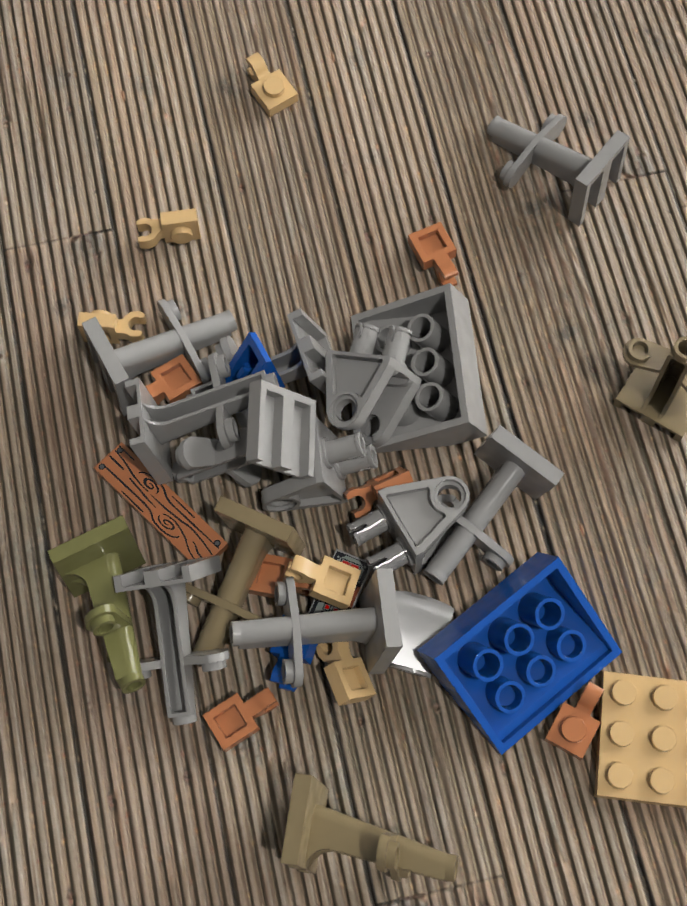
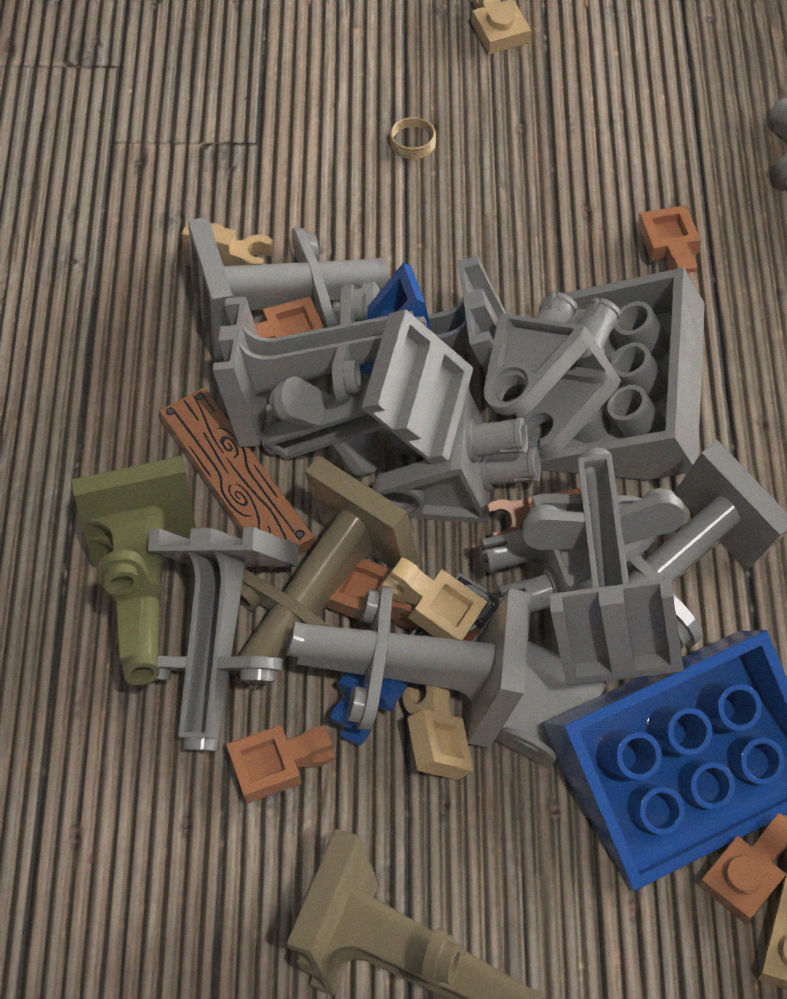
camera: 10 degrees right, 10 degrees down
(174, 226) = (336, 149): tan plate -> none
(230, 214) = (427, 148): none -> tan axle
(457, 583) = (616, 625): none -> light grey piece

